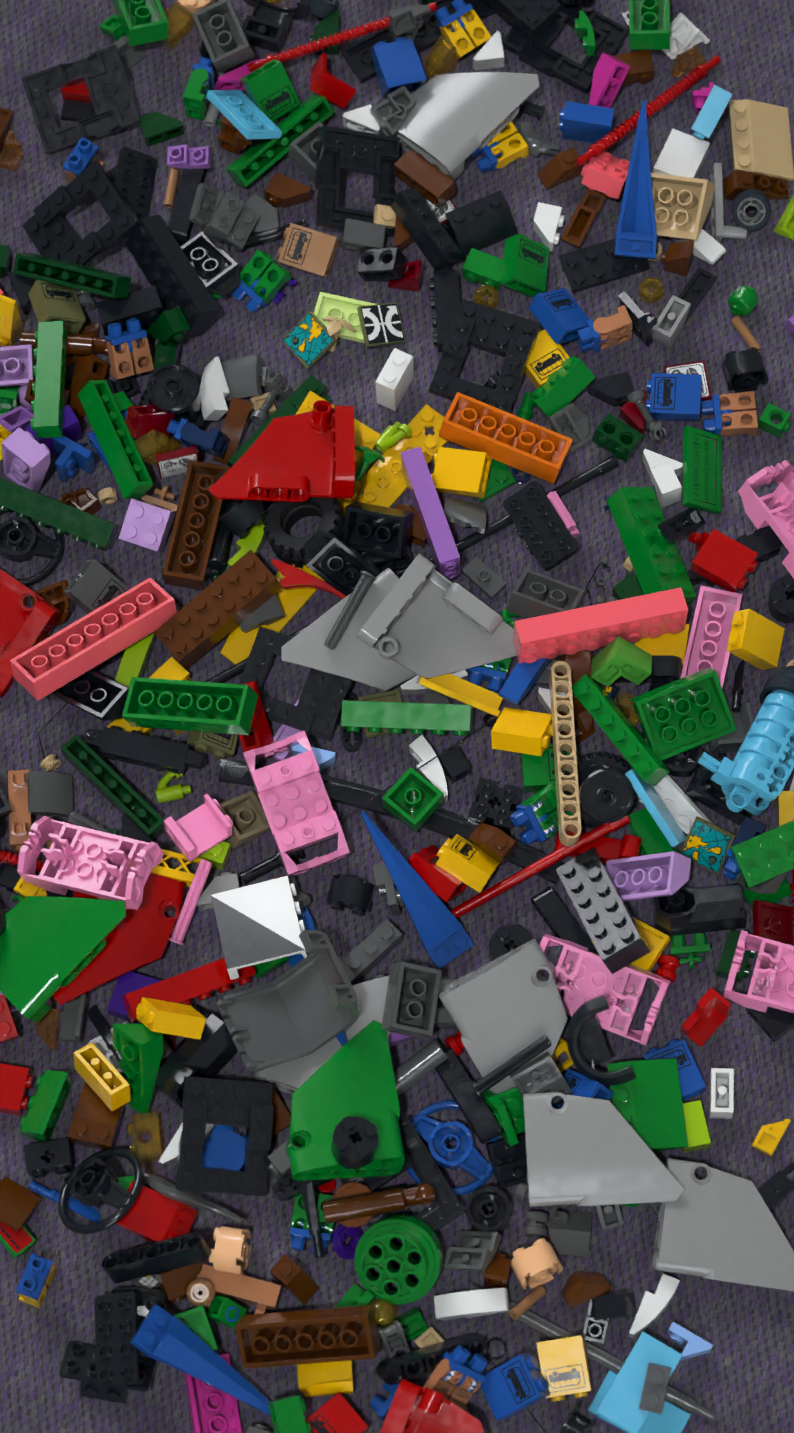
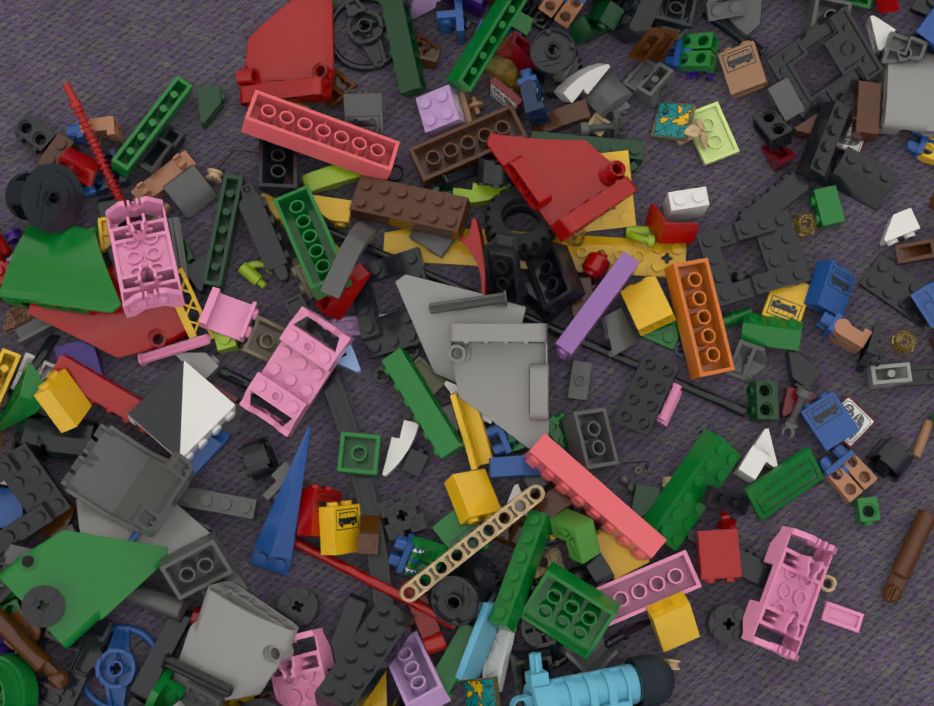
camera: 50 degrees right, 10 degrees up
(107, 496) = (445, 66): tan axle -> none
(229, 305) = (654, 44): none -> reddish brown slope
(234, 671) = (347, 259): none -> dark grey arch
(258, 334) = (650, 82): none -> dark grey brick
(286, 192) = (779, 20): reddish brown slope -> none
(369, 457) = (607, 230): green plant -> none
(381, 325) = (724, 163): tile -> none
(384, 216) = (812, 104): tan plate -> none
(391, 490) = (595, 265): none -> red head
(408, 409) = (670, 232): none -> red panel
(485, 719) = (466, 468): black piece -> none
(525, 265) = (851, 234): green brick -> none

